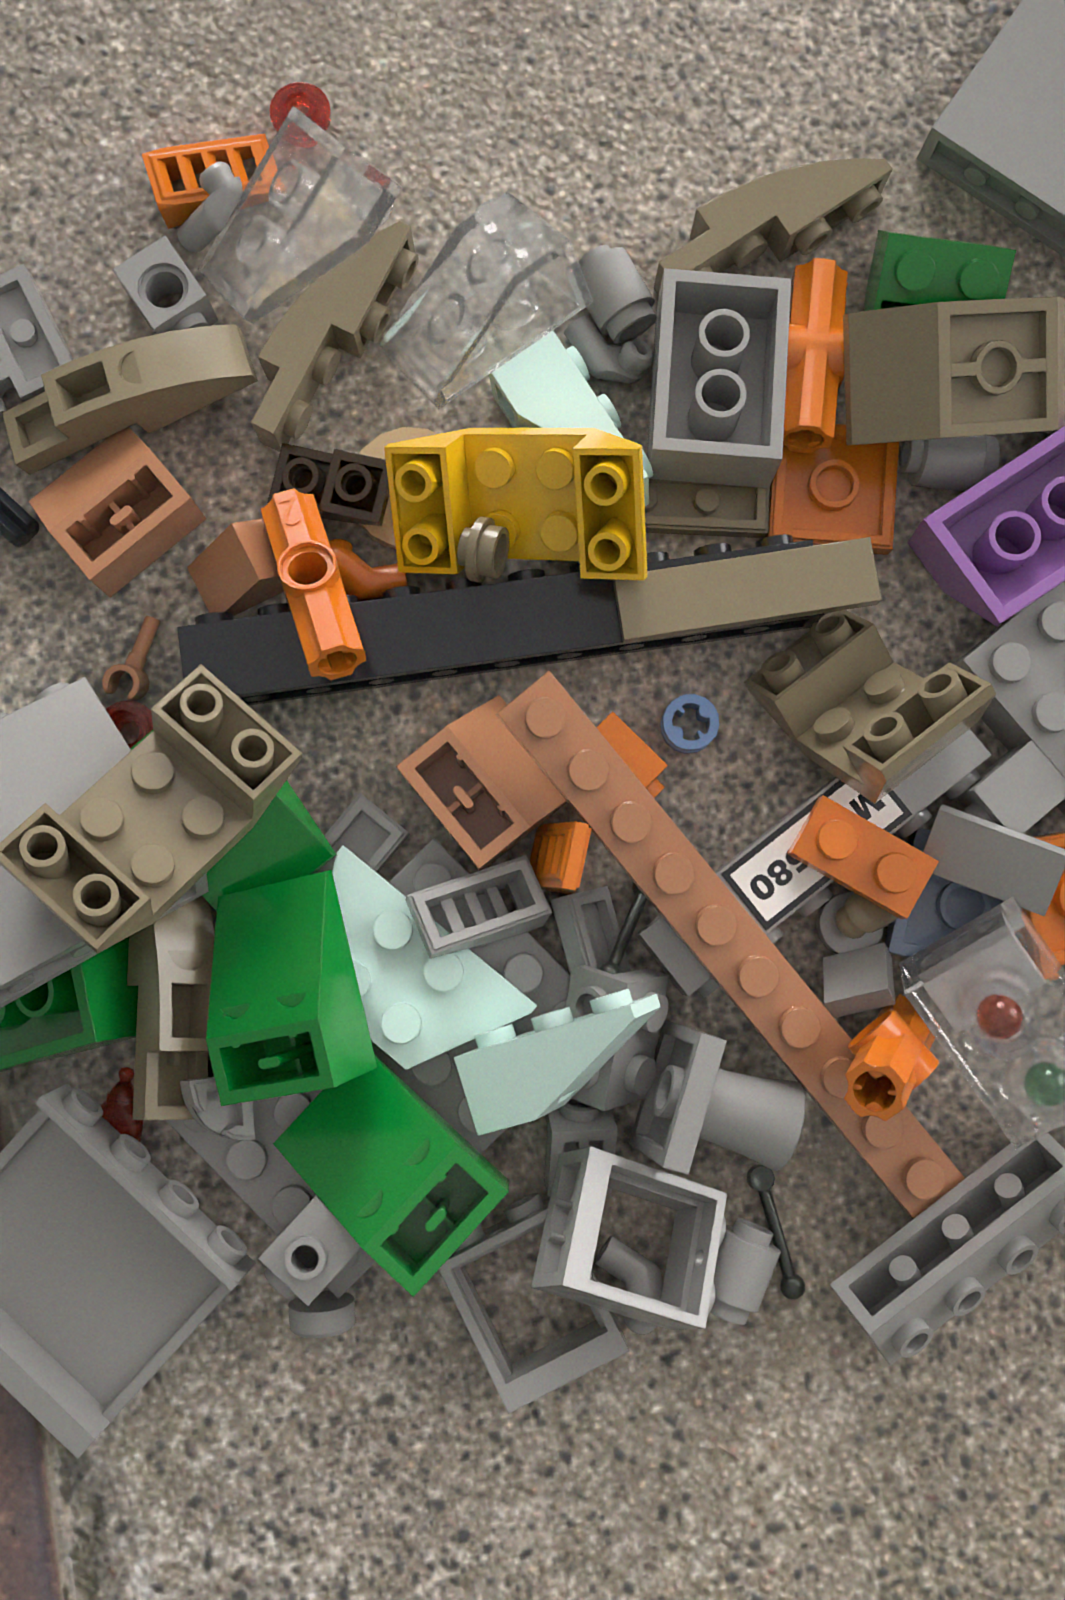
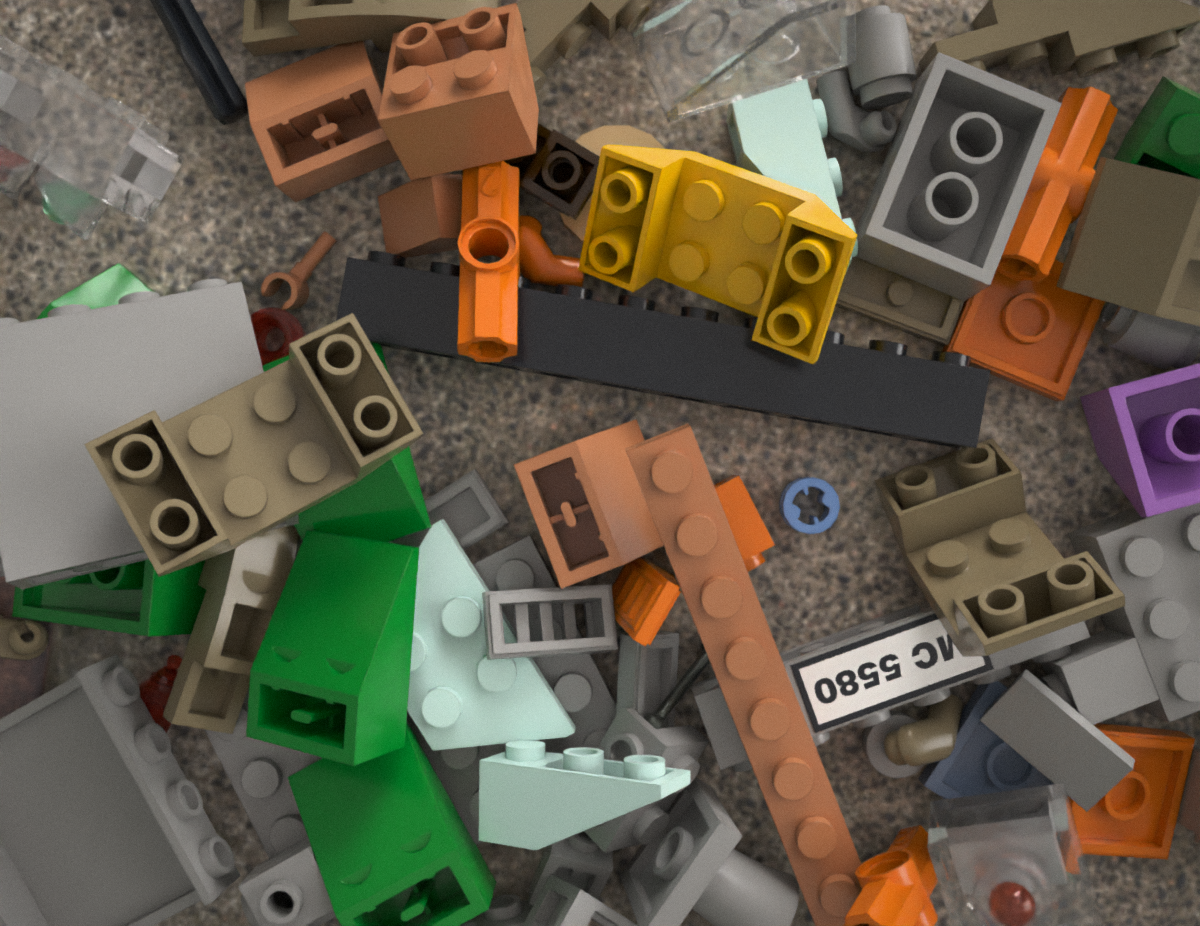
camera: 20 degrees right, 5 degrees up
(226, 1121) = (232, 721): light grey tile -> none
(237, 441) = (460, 93): none -> nougat slope
(483, 549) = (666, 278): dark tan plate -> none
(748, 590) = (912, 402): dark tan tile -> none
(858, 980) = (886, 806): light grey tile -> none
(863, 857) = (932, 697): orange plate -> none

